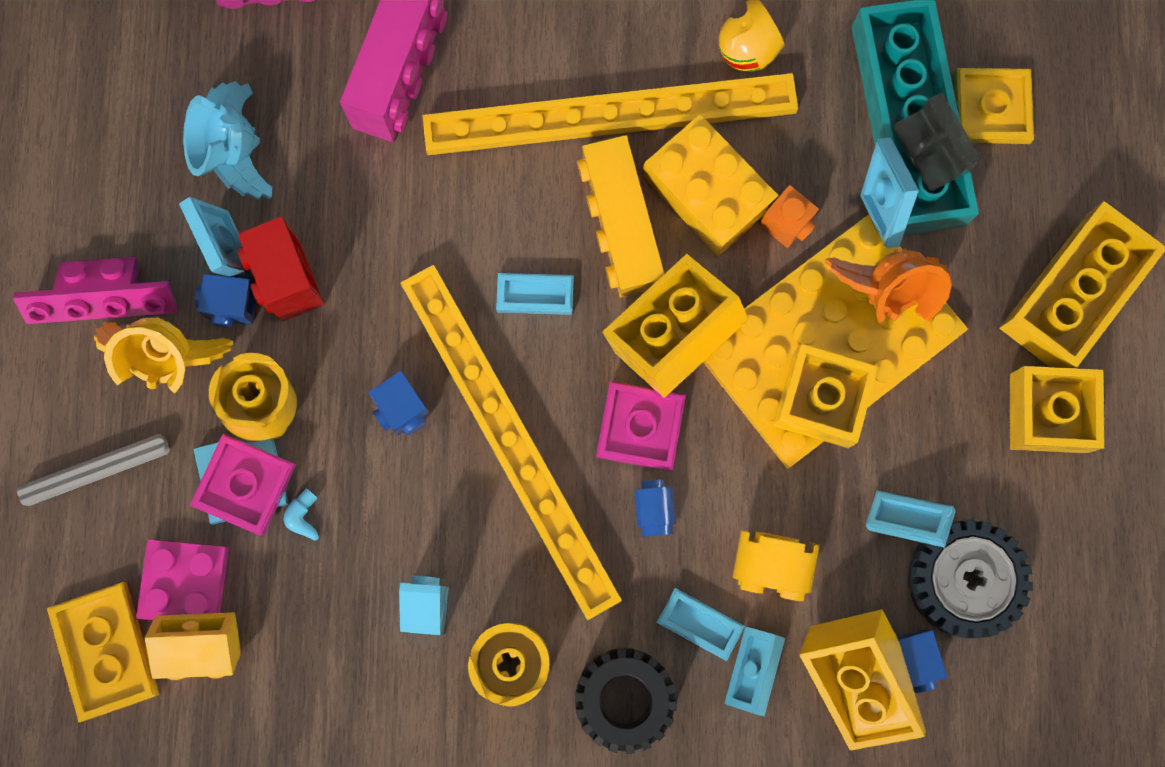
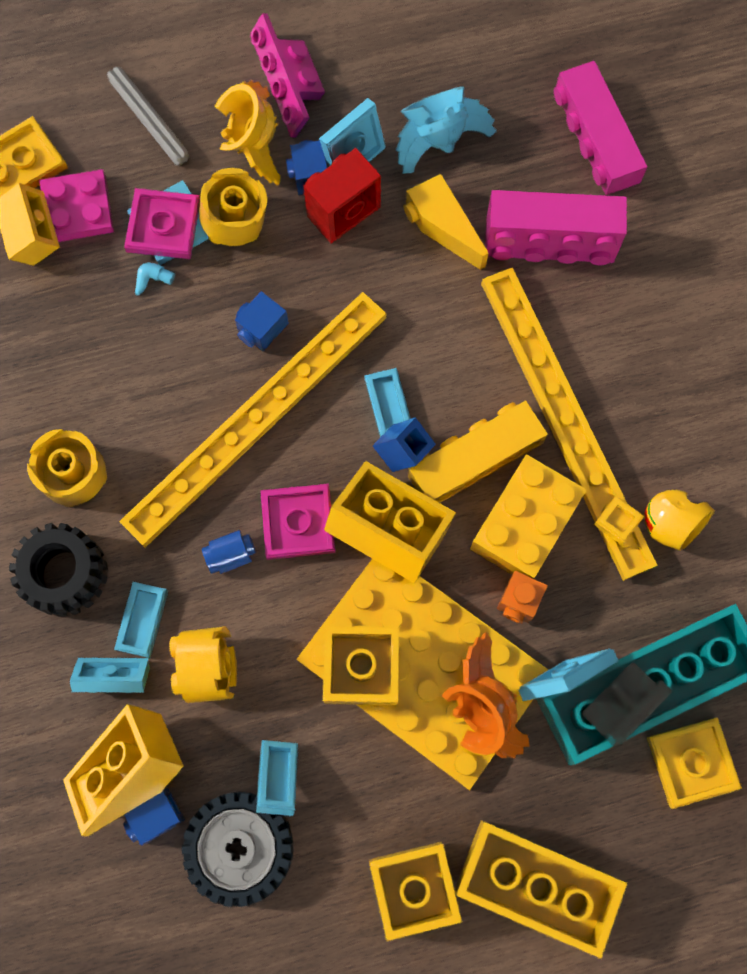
camera: 75 degrees right, 5 degrees down
(339, 171) = (444, 221): none -> yellow slope
(423, 605) = (98, 386): medium azure slope -> none
(594, 286) = (404, 445): none -> blue brick
(737, 94) = (619, 520): none -> yellow tile

